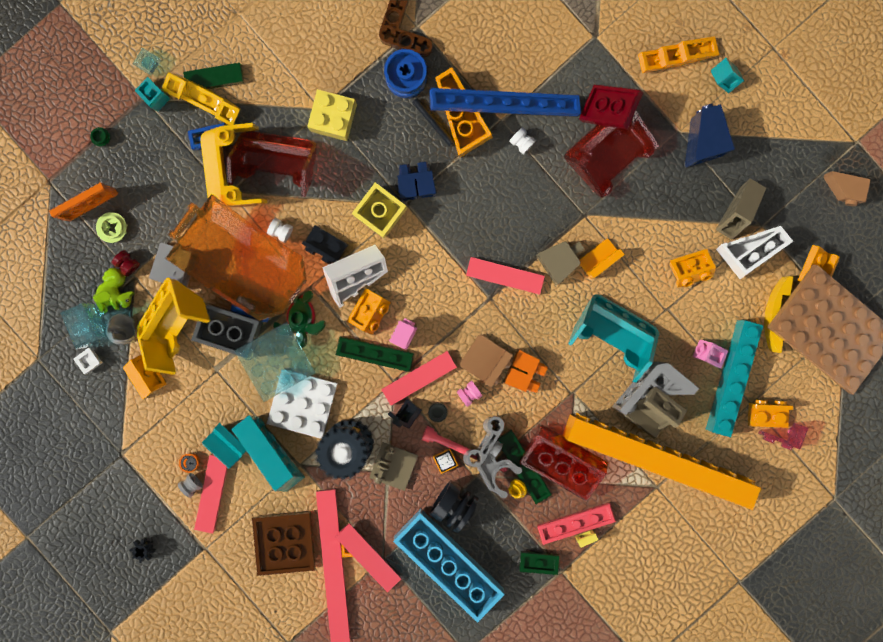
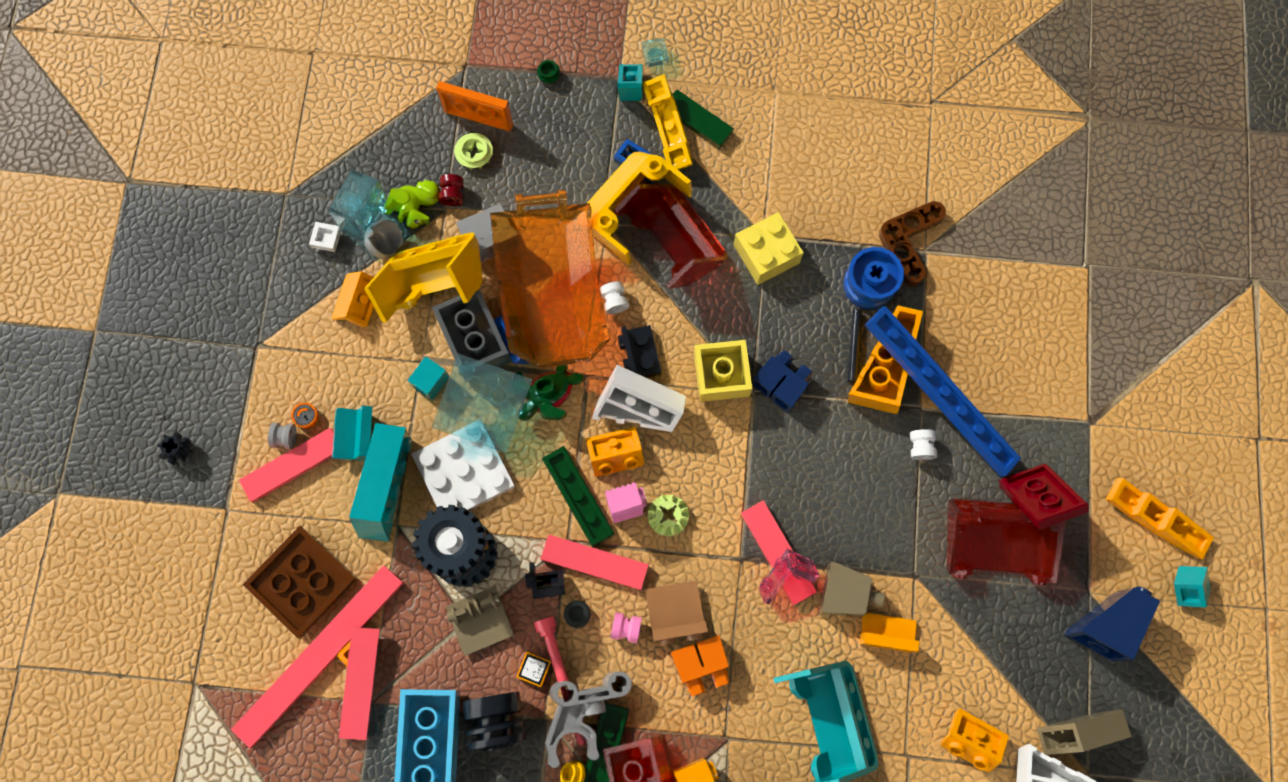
camera: 50 degrees right, 15 degrees down
(231, 376) = (428, 378): none -> teal panel
(436, 308) = (668, 527): none -> yellowish green gear
(517, 280) = (784, 566): none -> clear pink bracket

